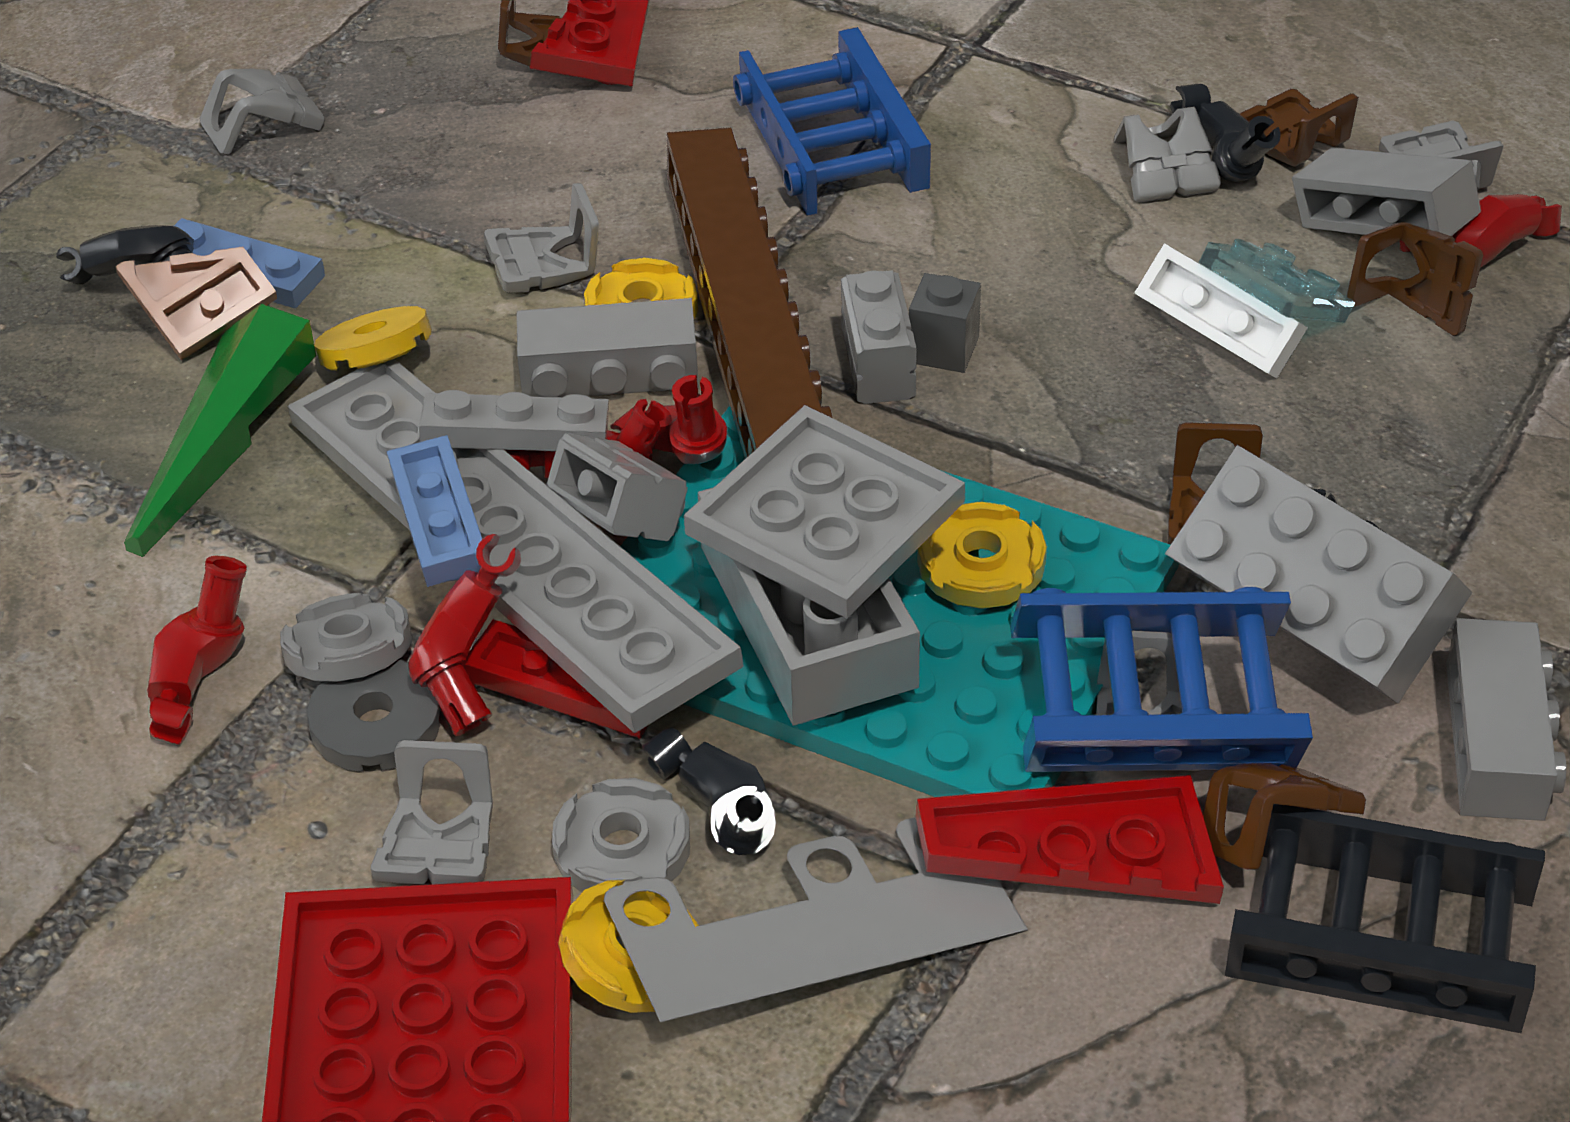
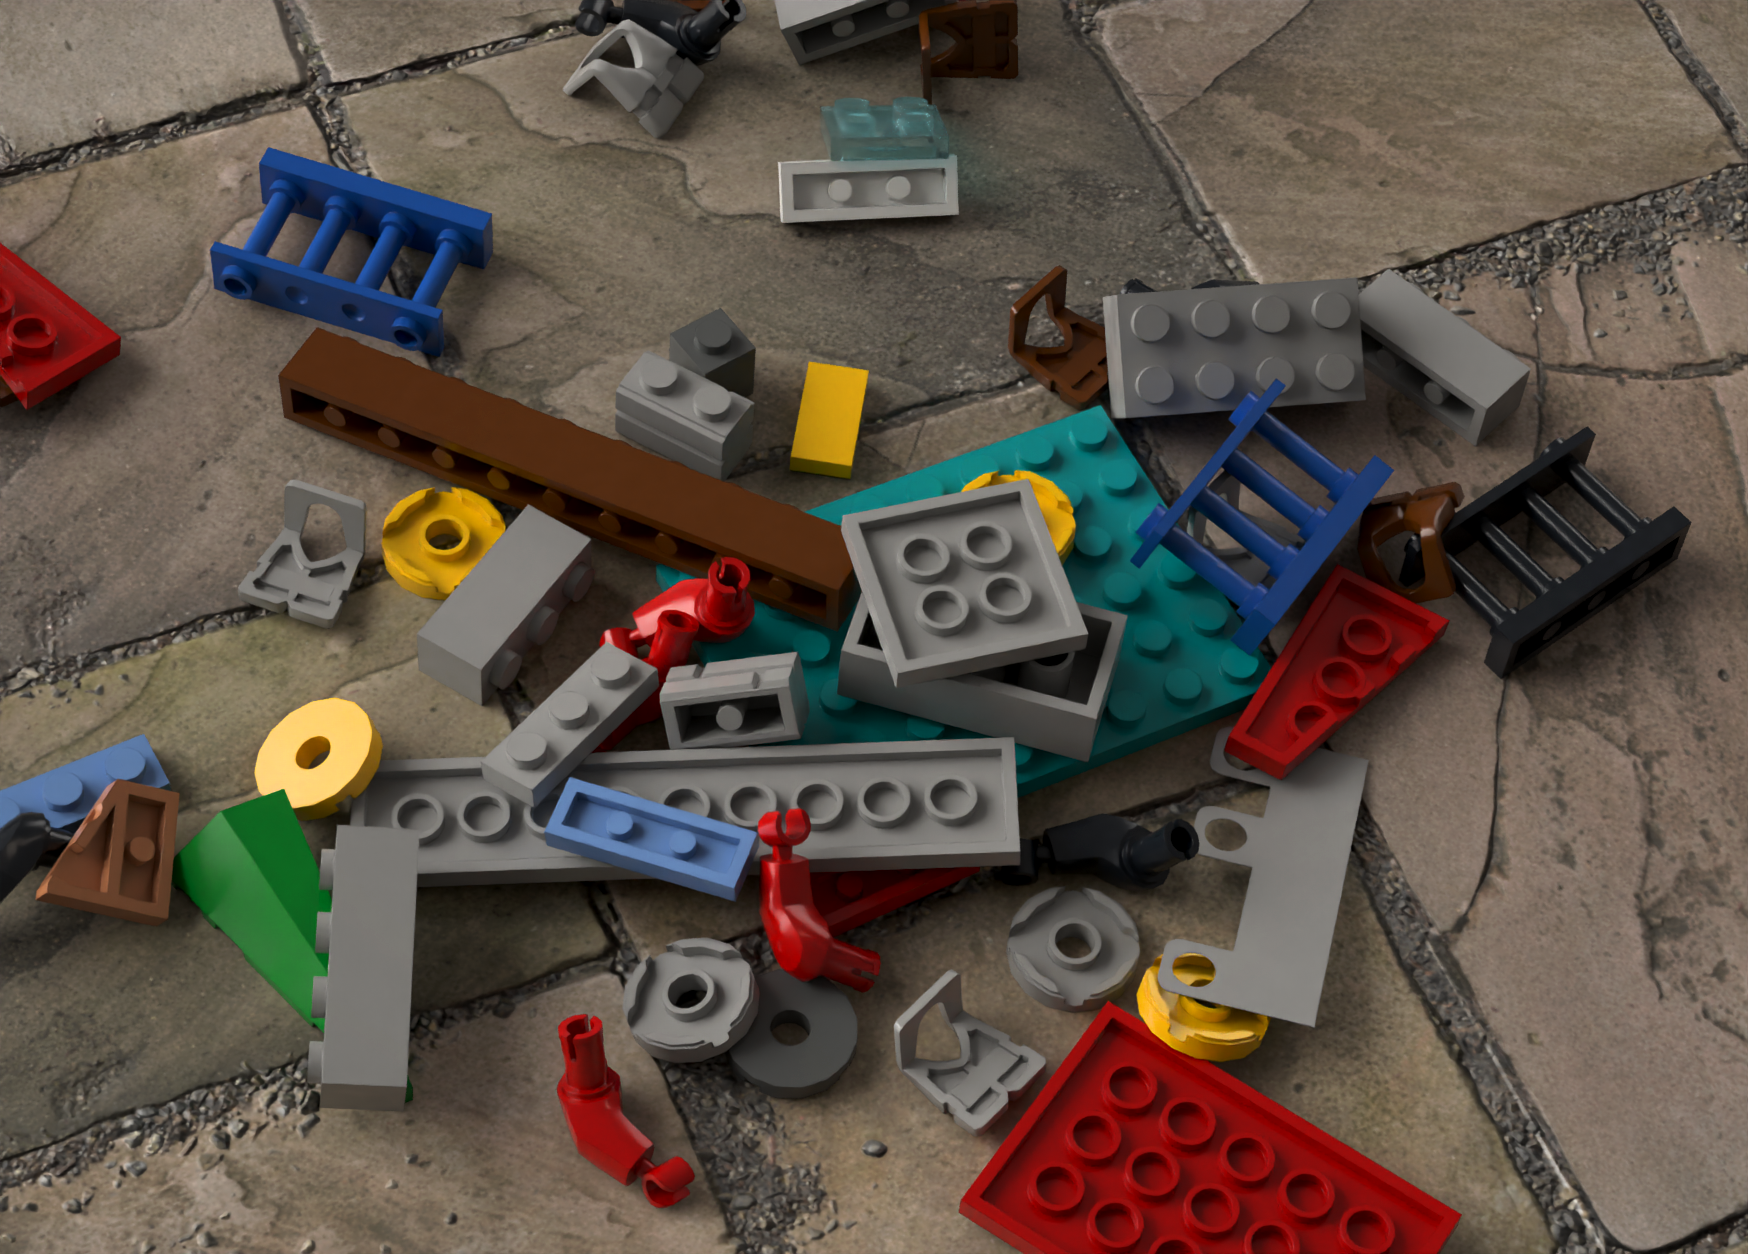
camera: 60 degrees left, 10 degrees up
(191, 441) = (368, 968): none -> light grey brick
(981, 418) = (829, 420): none -> yellow tile

